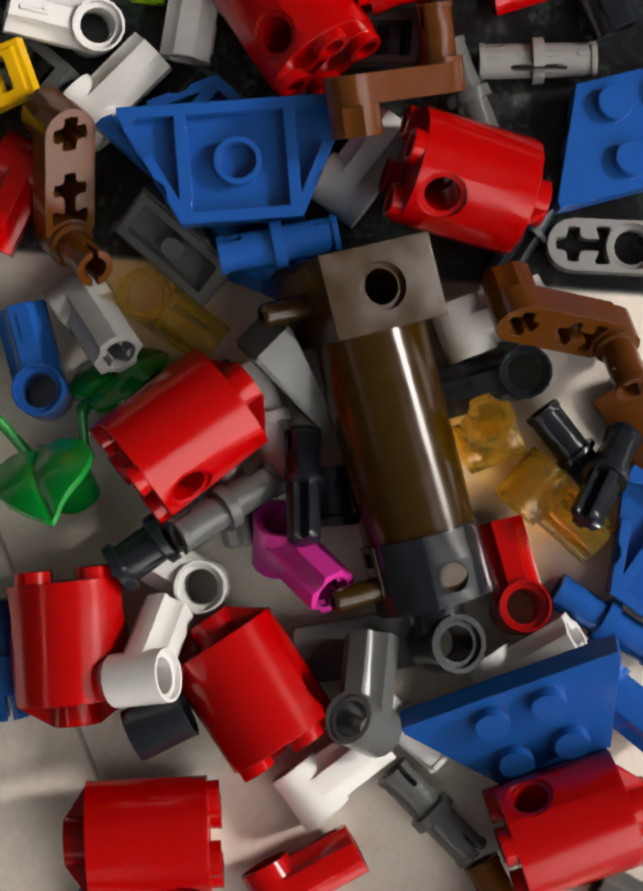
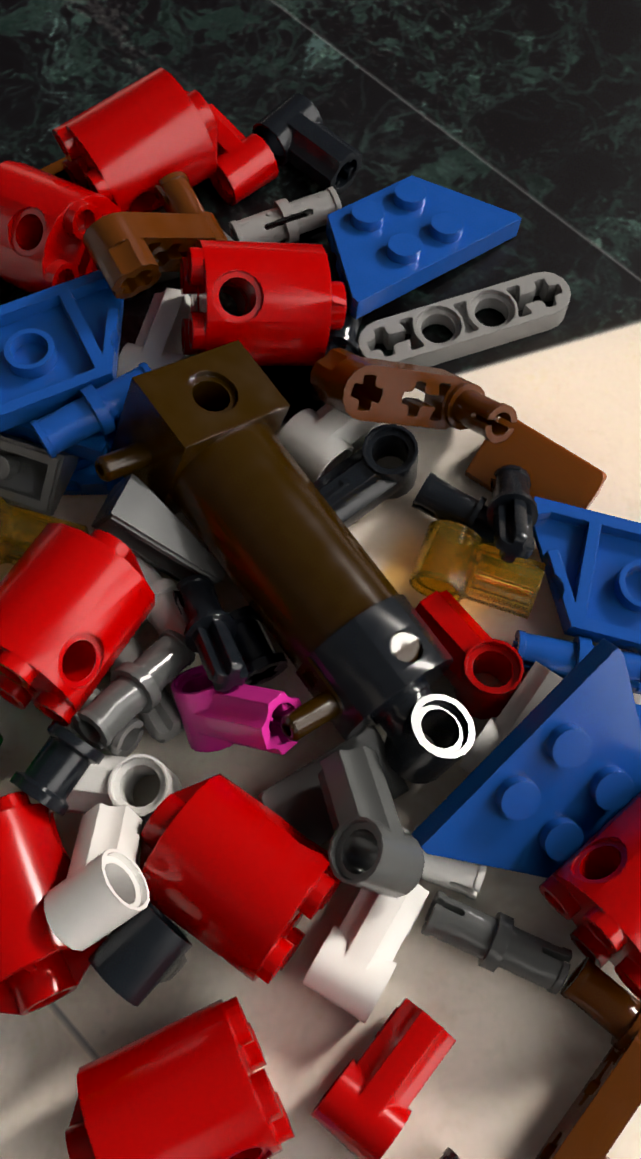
camera: 20 degrees left, 20 degrees down
(488, 434) = (380, 512): clear yellow piece -> none

